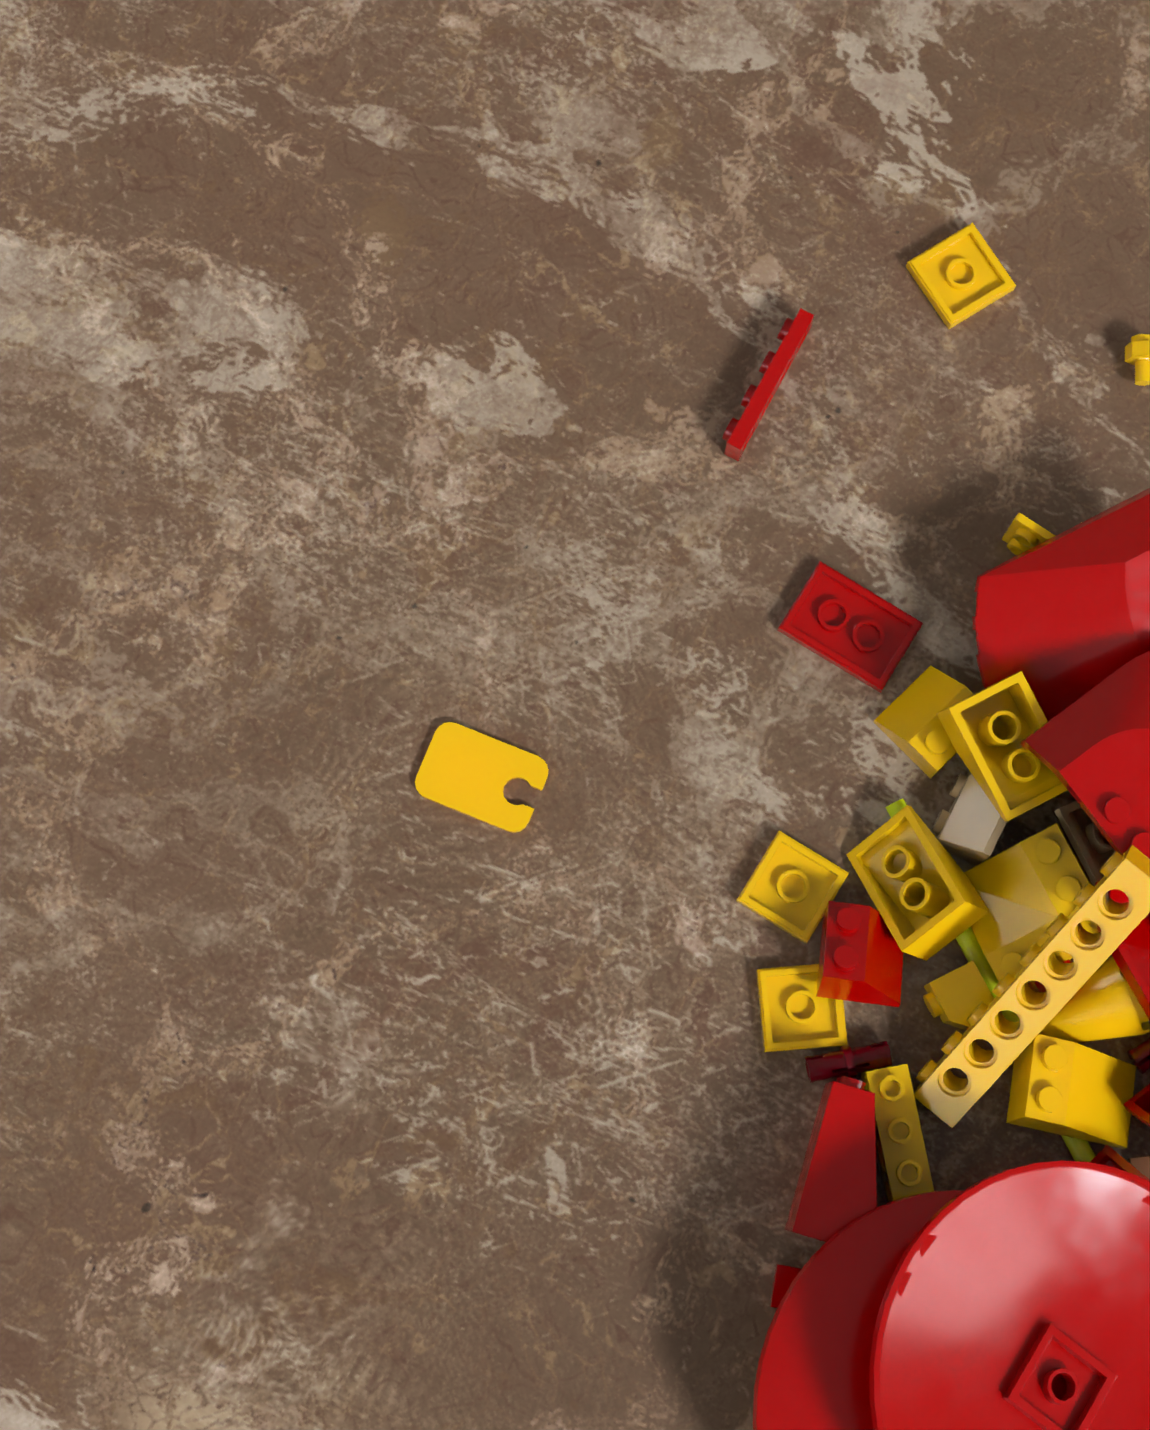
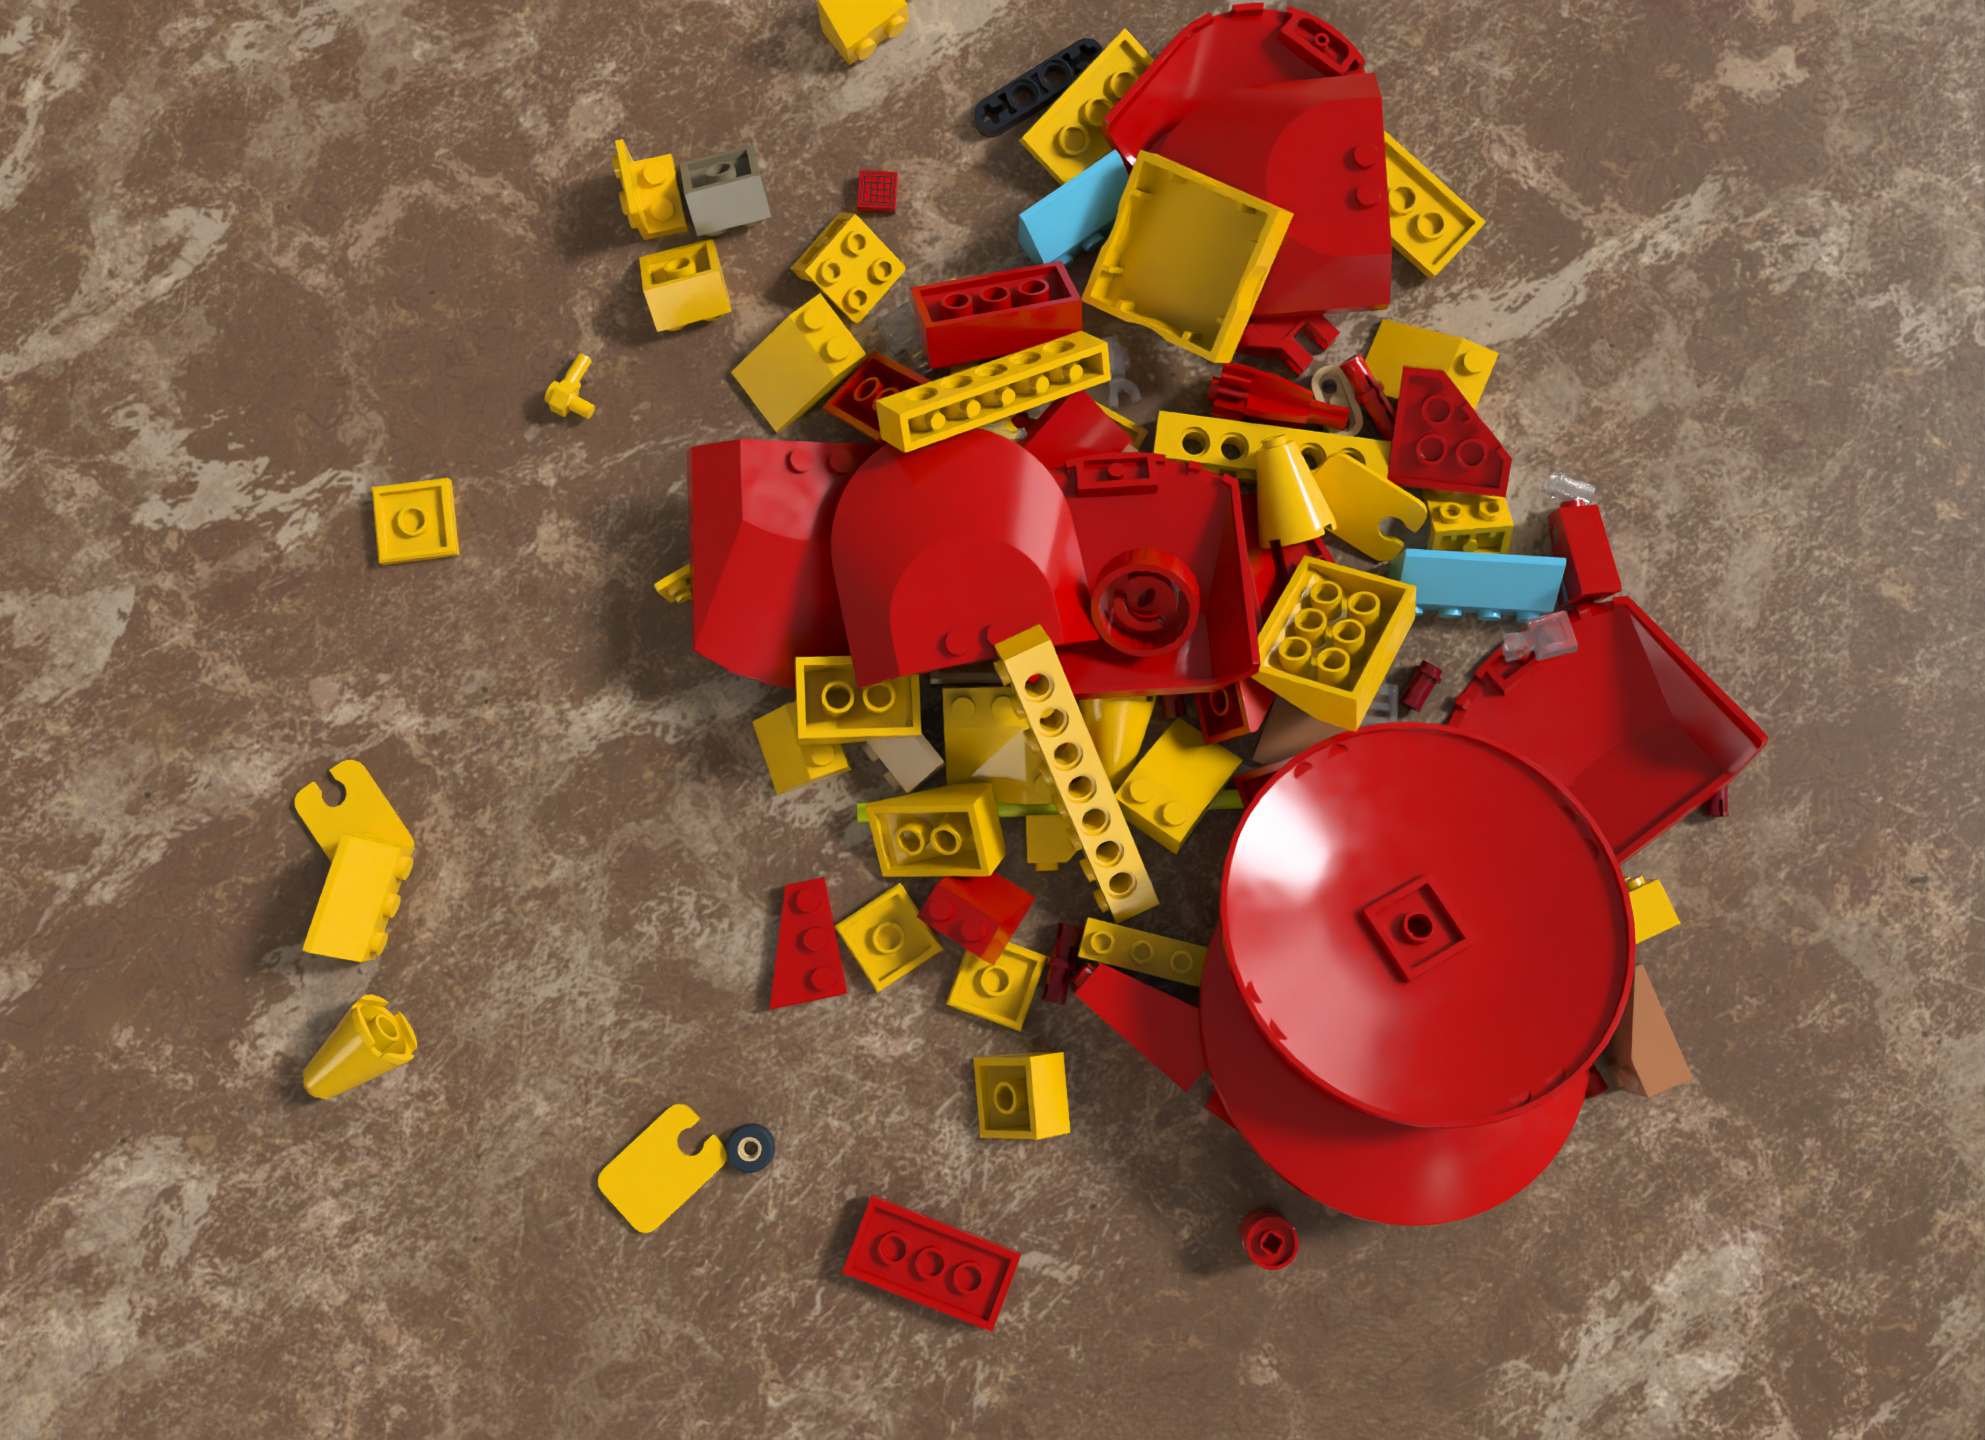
camera: 65 degrees left, 5 degrees up
(464, 453) = (360, 1049): none -> yellow cone
(511, 1068) = (932, 1262): none -> red plate
(537, 864) = (765, 1148): none -> black wheel
(602, 388) = (359, 897): none -> yellow slope
(654, 363) = (361, 811): none -> yellow piece
(685, 1383) = (1268, 1238): none -> red wheel
(707, 1080) = (1022, 1095): none -> yellow slope
(746, 815) = (808, 947): none -> red wing
(759, 397) = (420, 731): red plate -> none
(850, 626) = (684, 775): red tile -> none

